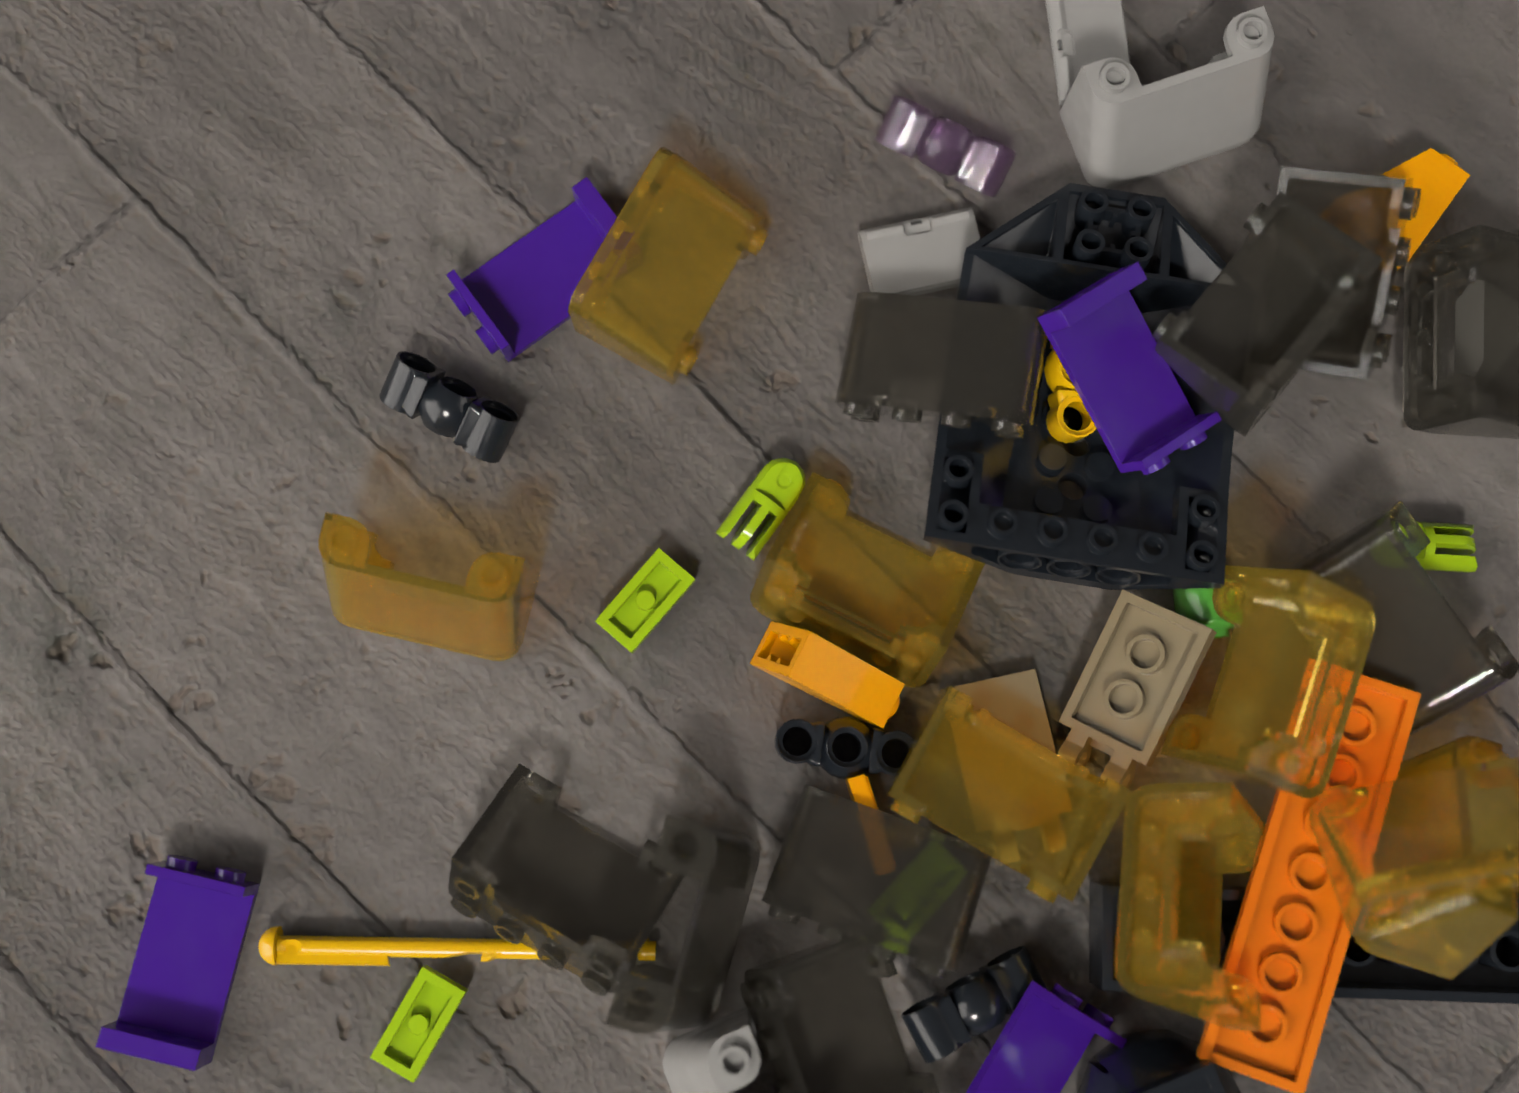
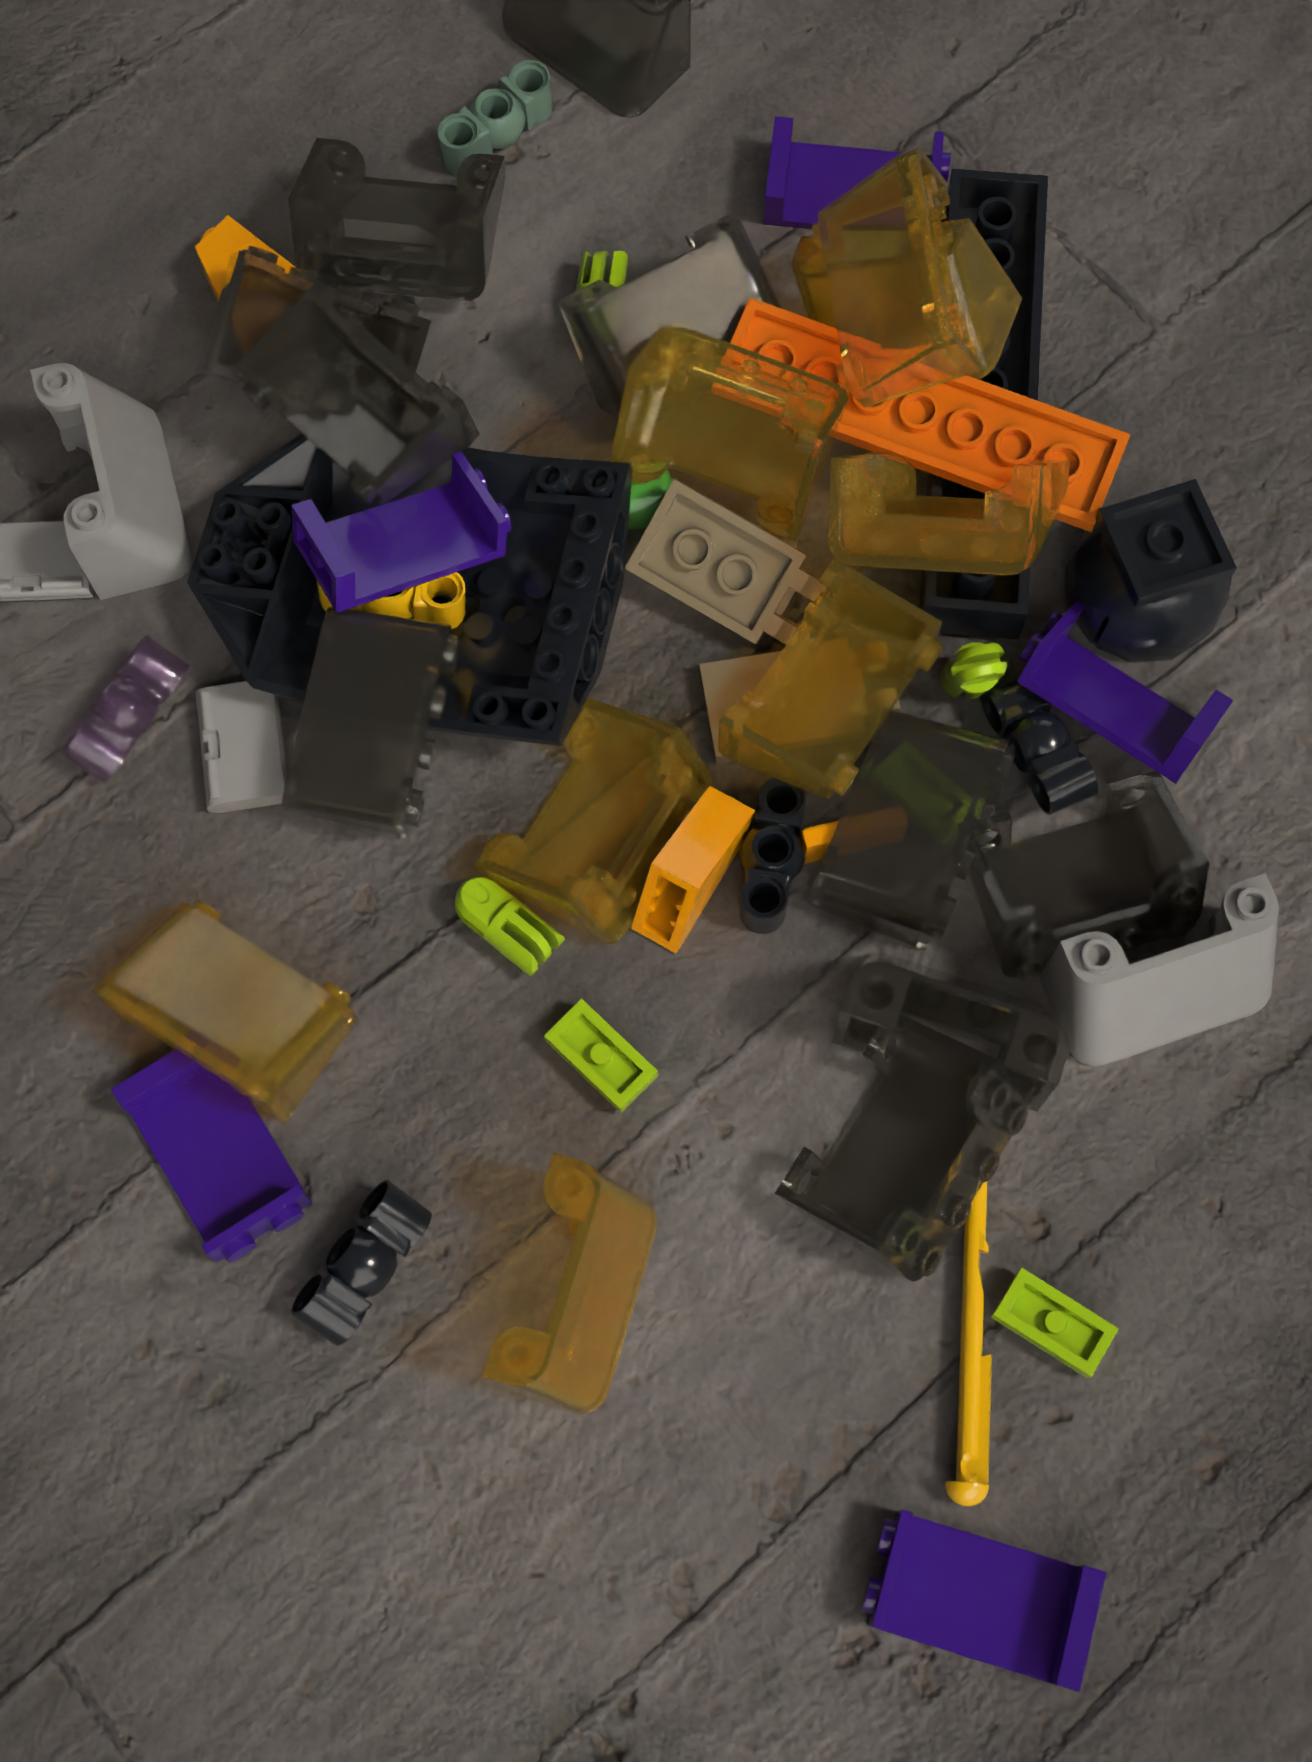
camera: 80 degrees left, 10 degrees down
(1043, 936) = (973, 670): none -> lime arm

